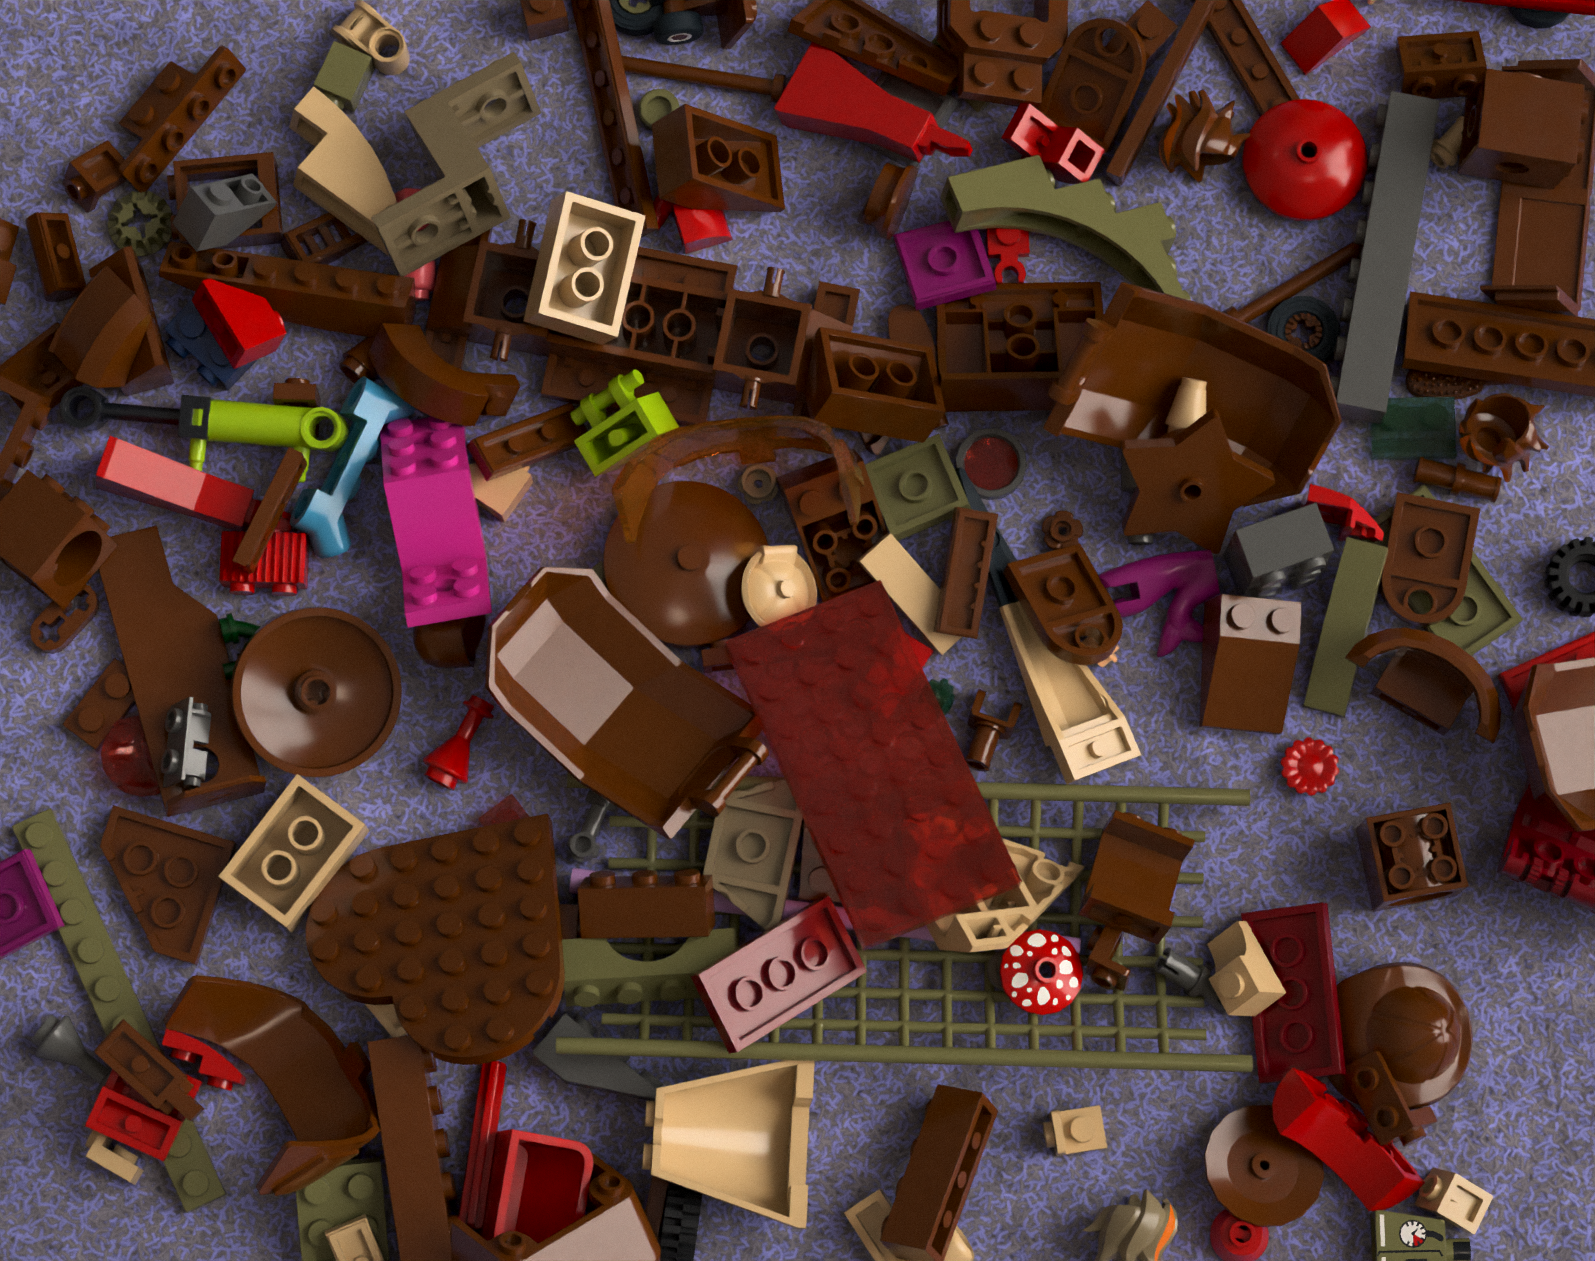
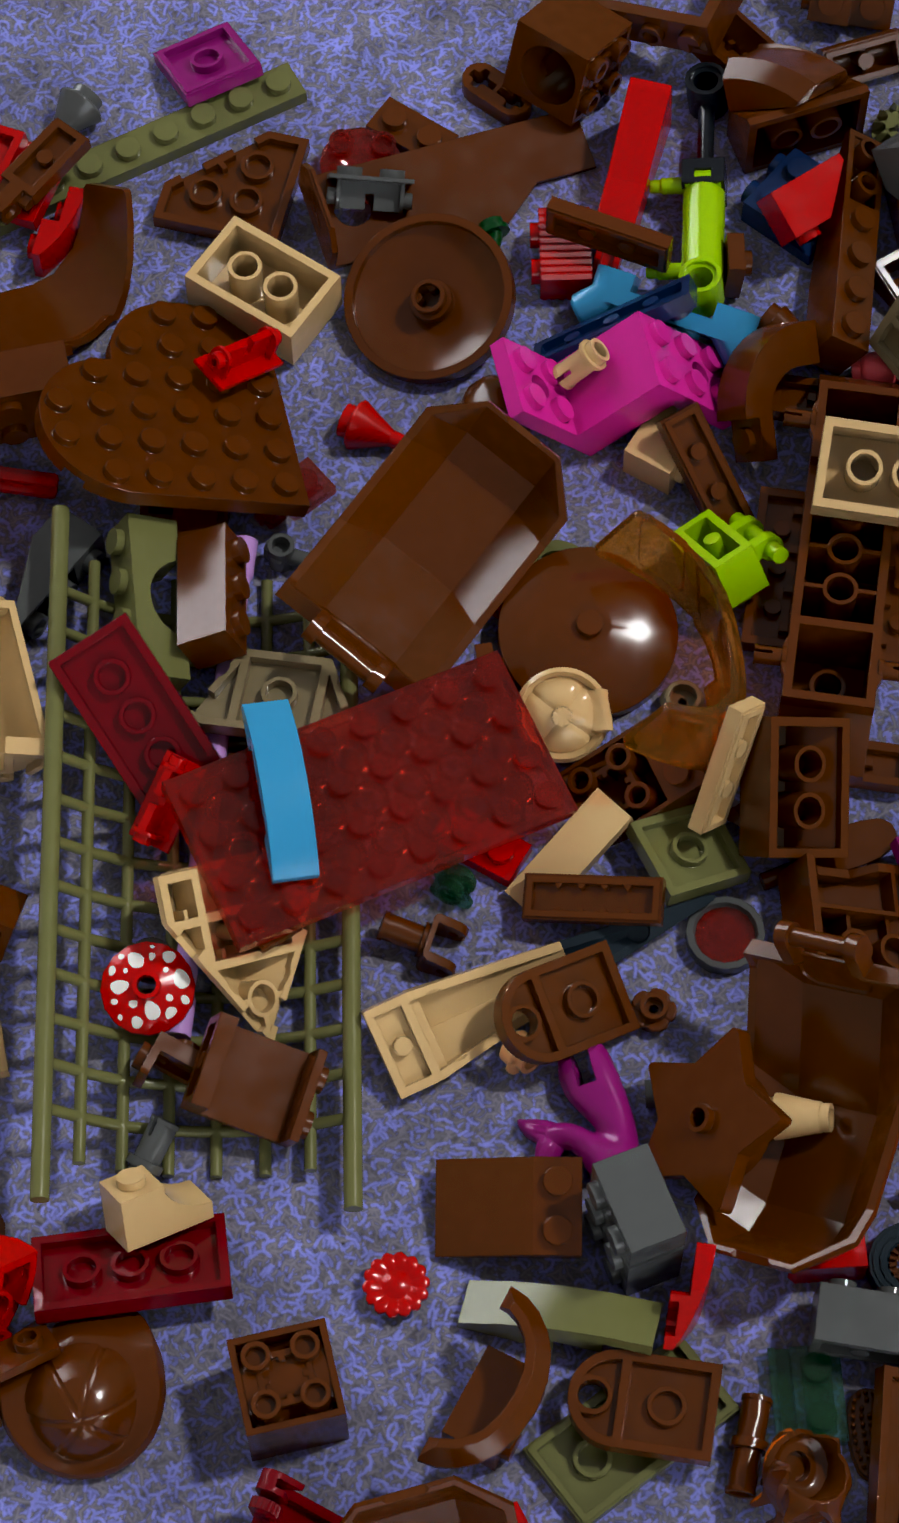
camera: 90 degrees right, 15 degrees down
(368, 512) = (667, 302): none -> dark blue plate
(385, 873) = (242, 359): none -> red hinge
(420, 535) = (589, 357): none -> tan pin
(860, 439) = (727, 764): none -> tan tile
(876, 834) = (282, 790): none -> dark azure slope
(877, 964) = (154, 820): none -> red hinge

